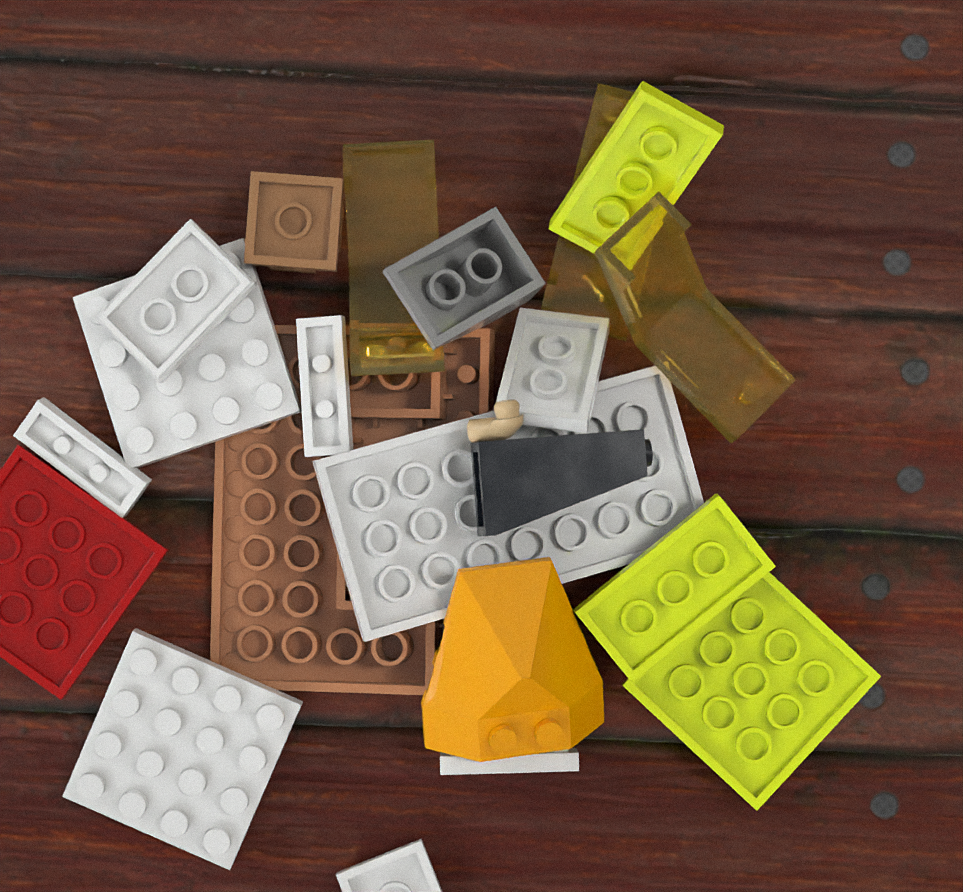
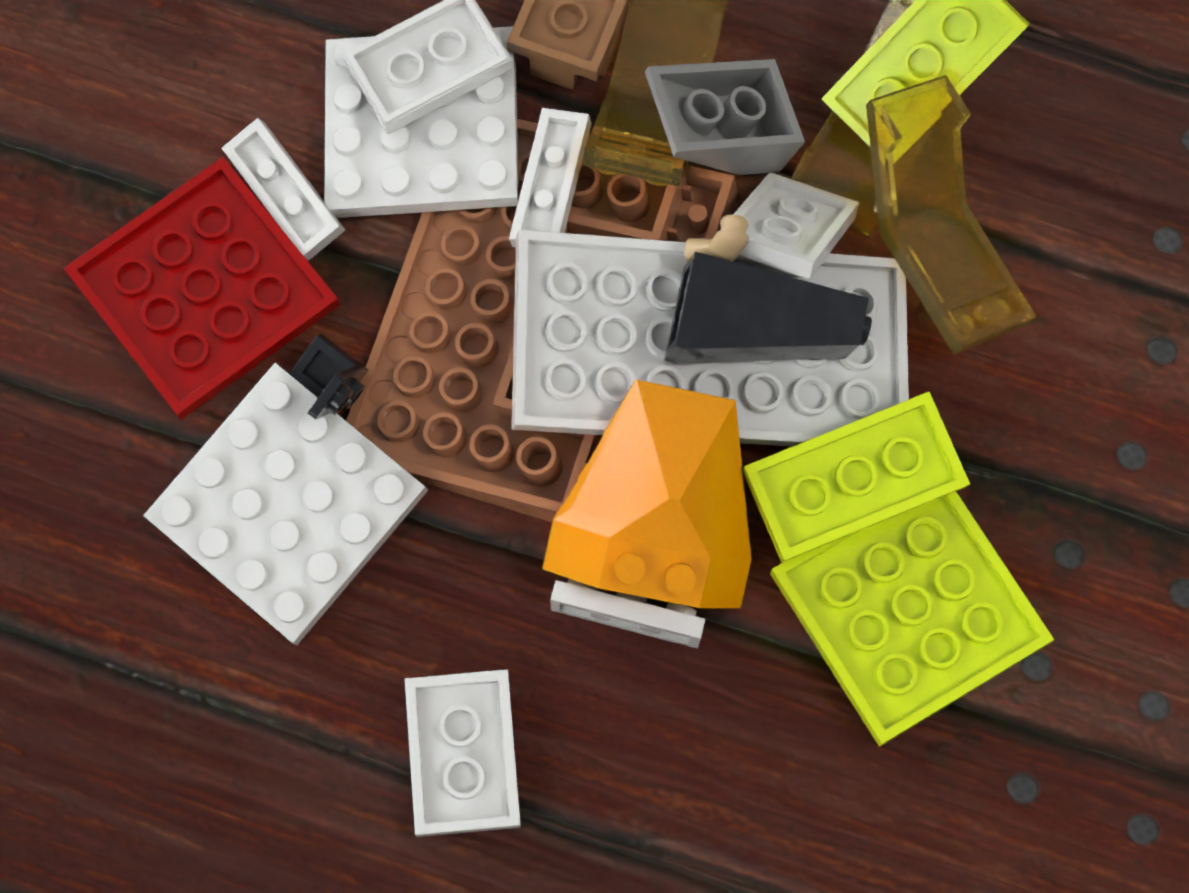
camera: 20 degrees right, 15 degrees down
(186, 623) = (330, 376): none -> black bracket

